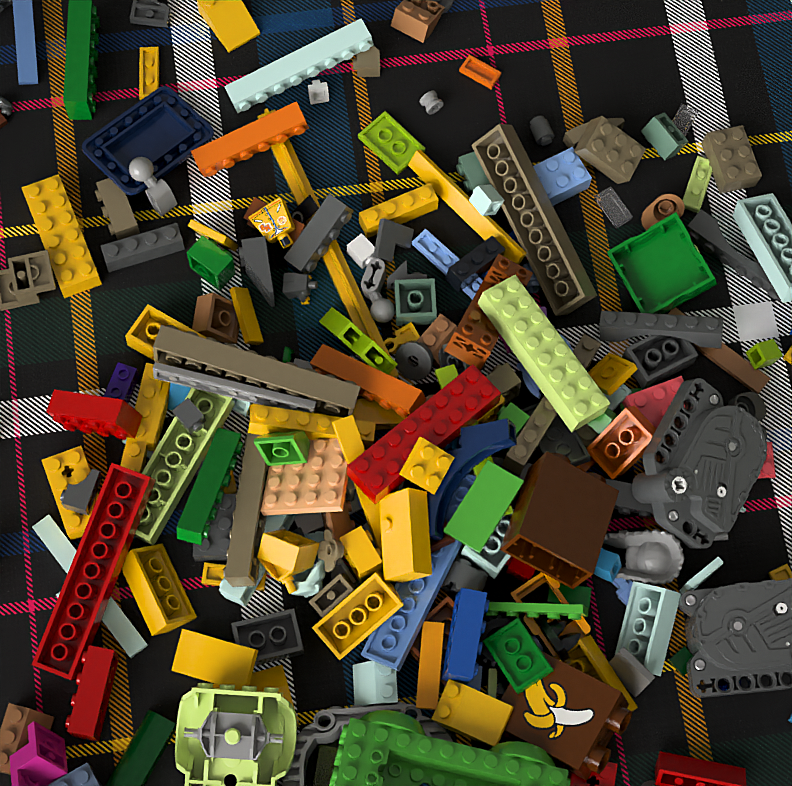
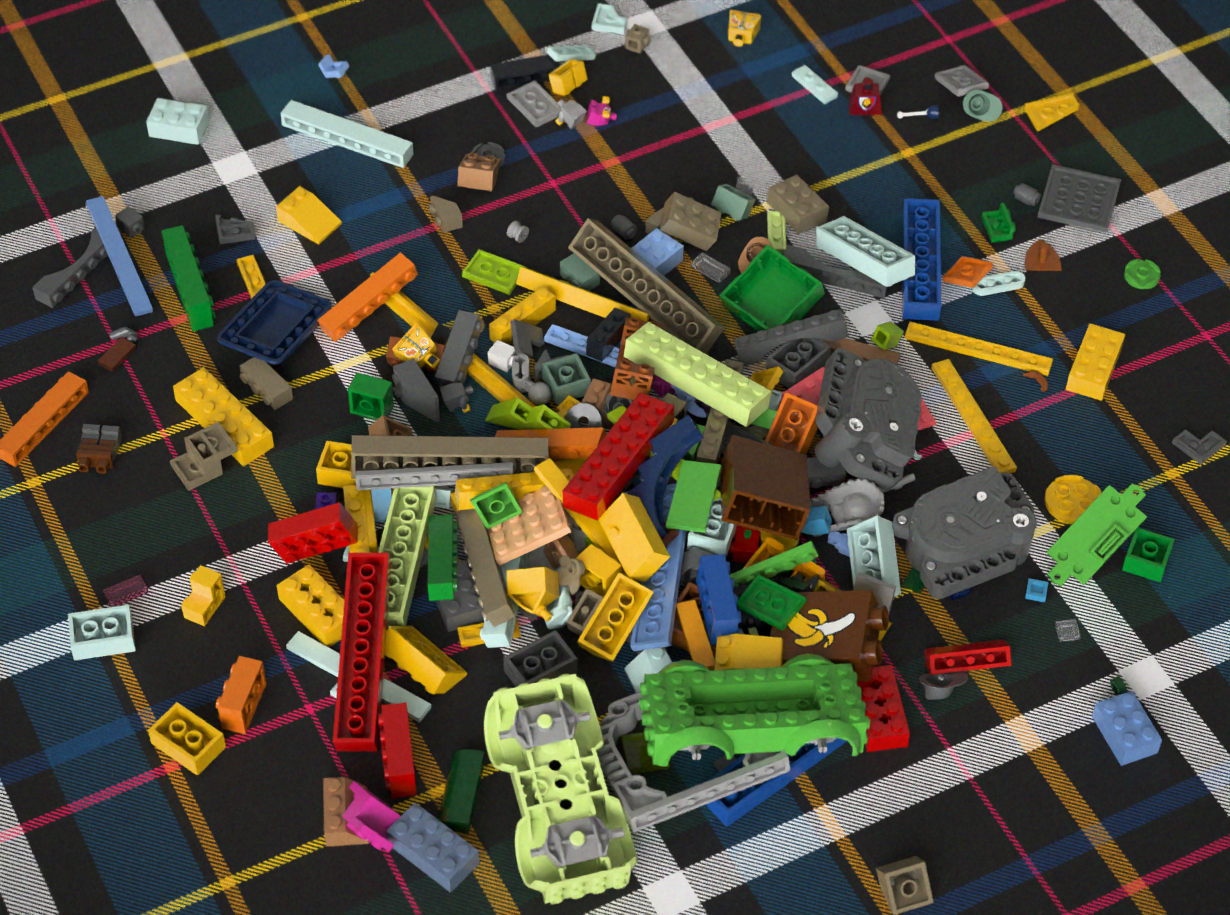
camera: 15 degrees left, 20 degrees down
(82, 495) = (326, 595): dark grey arch -> none
(142, 247) = (302, 405): dark grey brick -> none
(158, 191) = (302, 355): light grey beam -> none
(189, 416) = (401, 507): dark grey brick -> none
(213, 234) = (364, 366): yellow tile -> none
(214, 659) = (478, 690): yellow tile -> none
(246, 315) = (411, 423): yellow tile -> none
(299, 65) = (388, 232): light aqua brick -> none
(318, 92) = (413, 249): white tile -> none
(426, 465) = (632, 472): yellow plate -> none
(480, 71) = (551, 200): orange tile -> none
(486, 200) = (598, 284): light aqua brick -> none
(704, 574) = (907, 500): light aqua tile -> none

